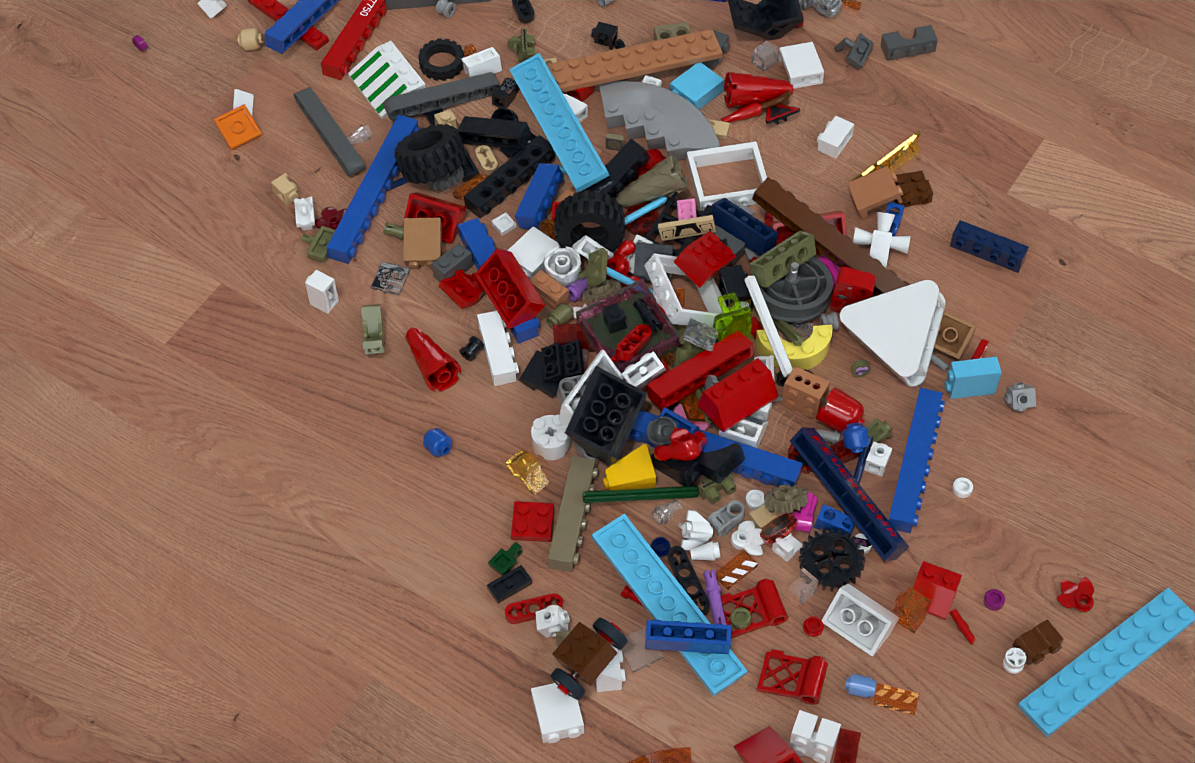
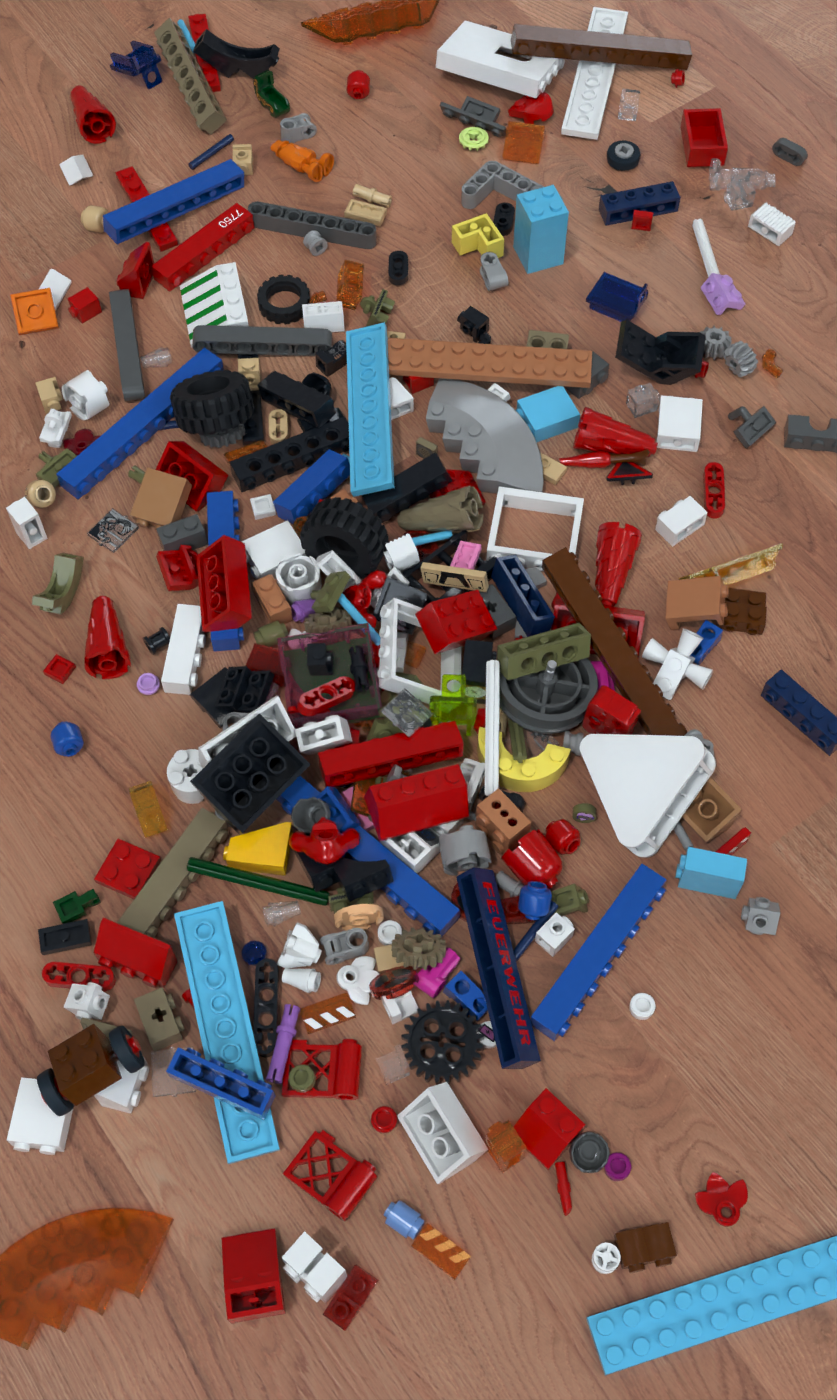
camera: 20 degrees right, 5 degrees up
(277, 110) = (84, 305): none -> red brick
(309, 70) = (137, 271): none -> red slope
(318, 180) = (85, 395): none -> white brick
(321, 263) = (40, 493): none -> tan head
(401, 394) = (59, 669): none -> red tile
(479, 383) = (148, 684): none -> lavender plate
(492, 31) = (350, 284): none -> clear orange brick
(572, 574) = (134, 953): none -> red slope
(611, 604) = (159, 1033): none -> dark tan brick
(638, 223) = (401, 554): none -> white brick
(730, 491) = (358, 916): none -> light nougat tile
(786, 420) = (464, 850): none -> light grey brick
(799, 175) = (614, 559): none -> red cone
(850, 100) = (718, 482): none -> red beam
(854, 387) = (563, 836): none -> red head
(971, 595) = (589, 1152): none -> dark grey hair

